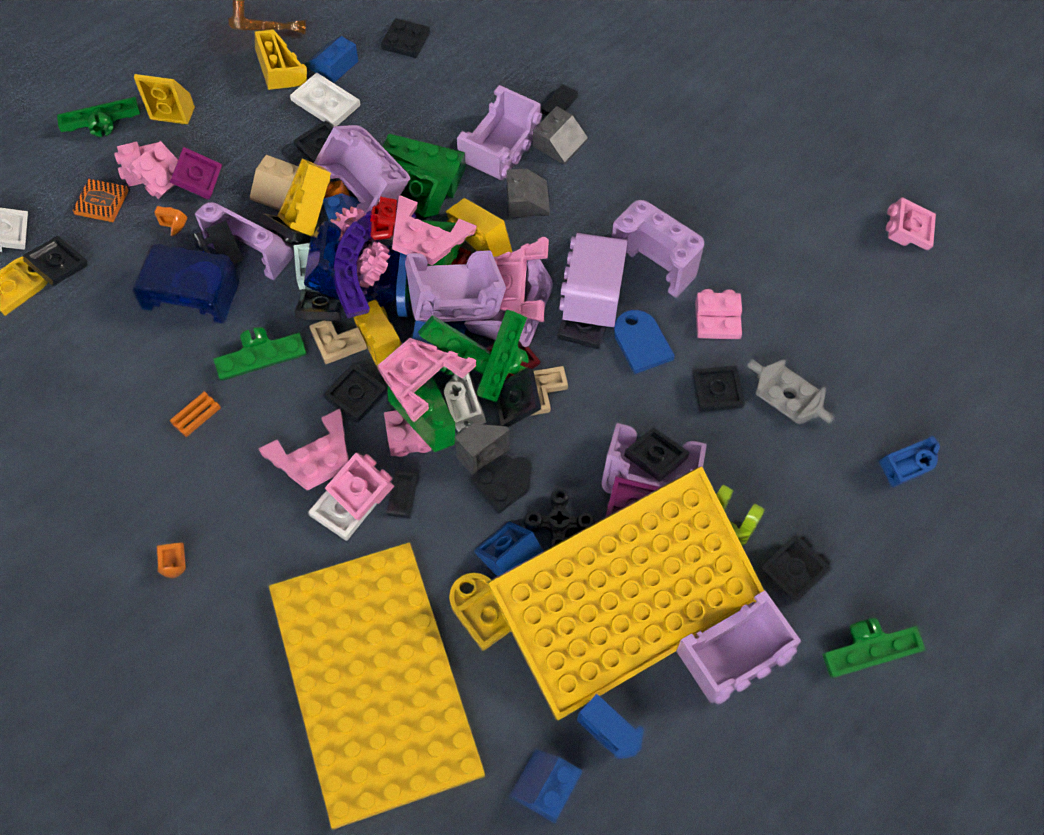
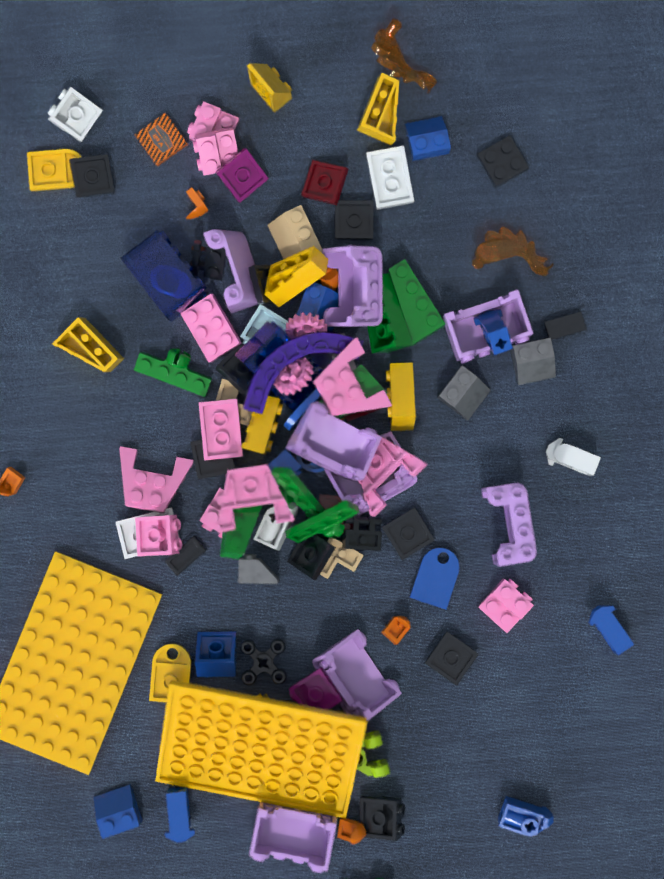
camera: 45 degrees right, 25 degrees up
(98, 117) = (212, 55): green plate -> none
(158, 385) = (89, 345): none -> yellow wedge
(192, 411) = (95, 376): orange tile -> none
(265, 297) = (211, 328): none -> bright pink plate
(273, 135) = (324, 182): none -> dark red tile
(342, 360) = (220, 429): none -> bright pink plate
(383, 218) = (328, 351): red piece -> none
(458, 80) = (505, 245): none -> clear orange animal
(503, 481) = (255, 602): black plate -> none
(509, 128) = (494, 331): none -> blue piece
(548, 353) = (361, 538): none -> black plate
(593, 279) = (441, 511): lavender windscreen -> none
(649, 399) = (396, 629): none -> orange plate
(656, 454) = (364, 671): black plate -> none
(659, 175) = (572, 457): none -> white piece
(777, 379) = (499, 718): light grey plate -> none
(787, 600) = (351, 830): none -> orange plate
(818, 265) = (610, 628): none -> blue piece

